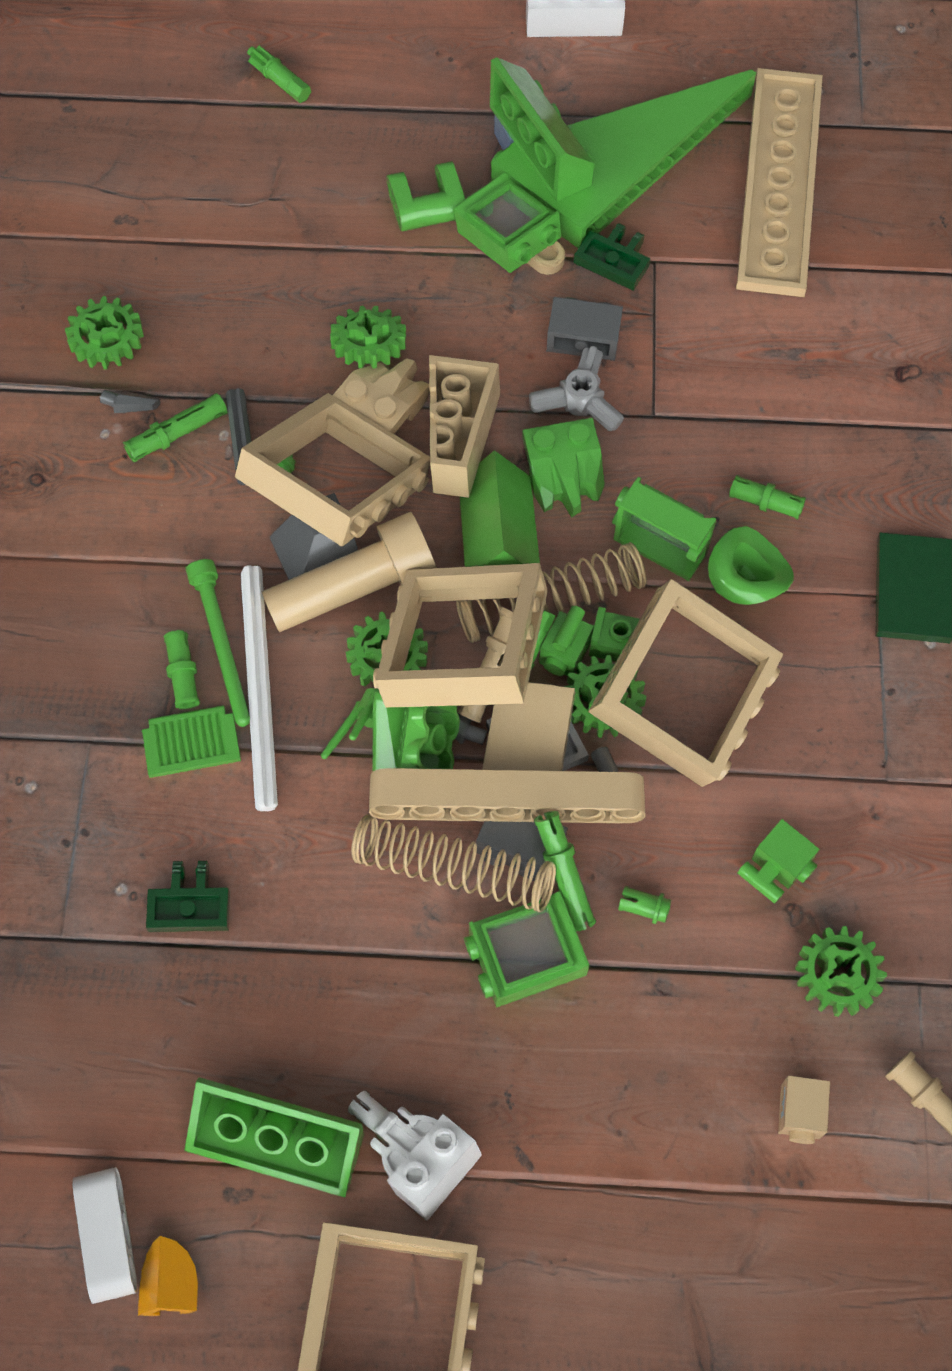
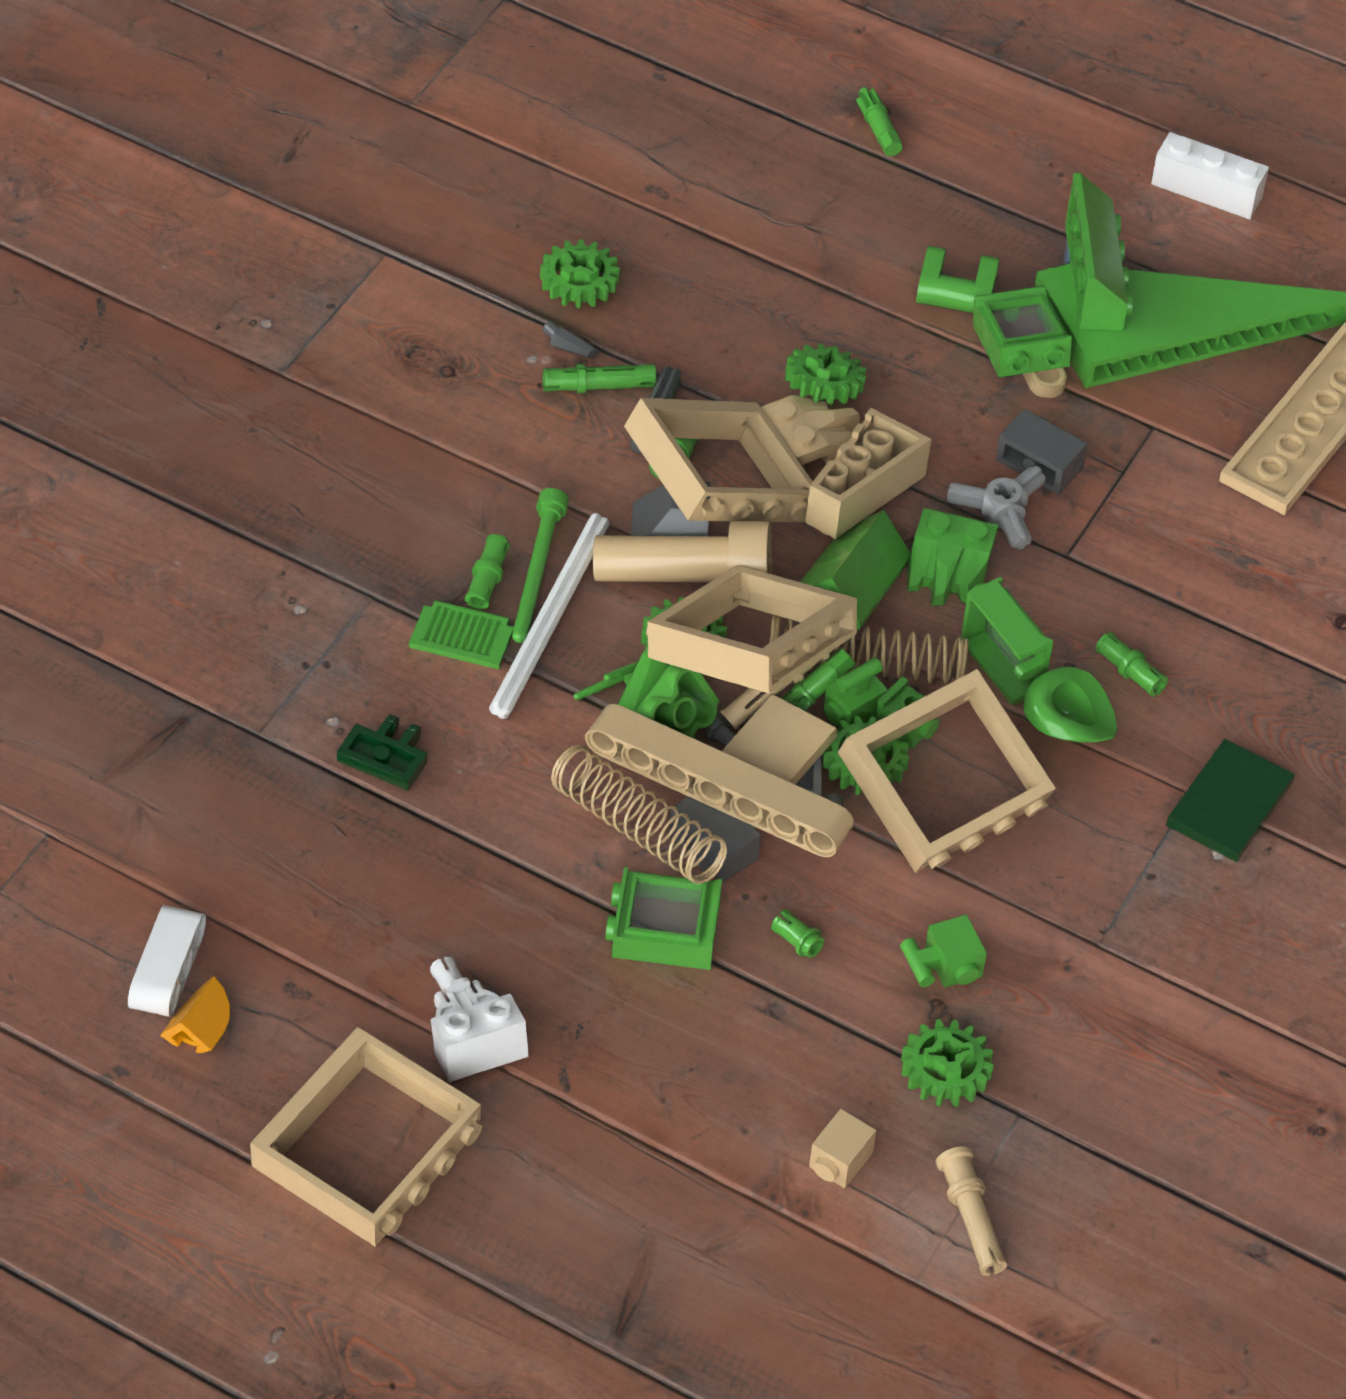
camera: 25 degrees right, 15 degrees down
(273, 1137) = (356, 953): bright green slope -> none
(567, 877) = (736, 864): bright green pin -> none
(612, 259) = (1110, 404): dark green hinge -> none

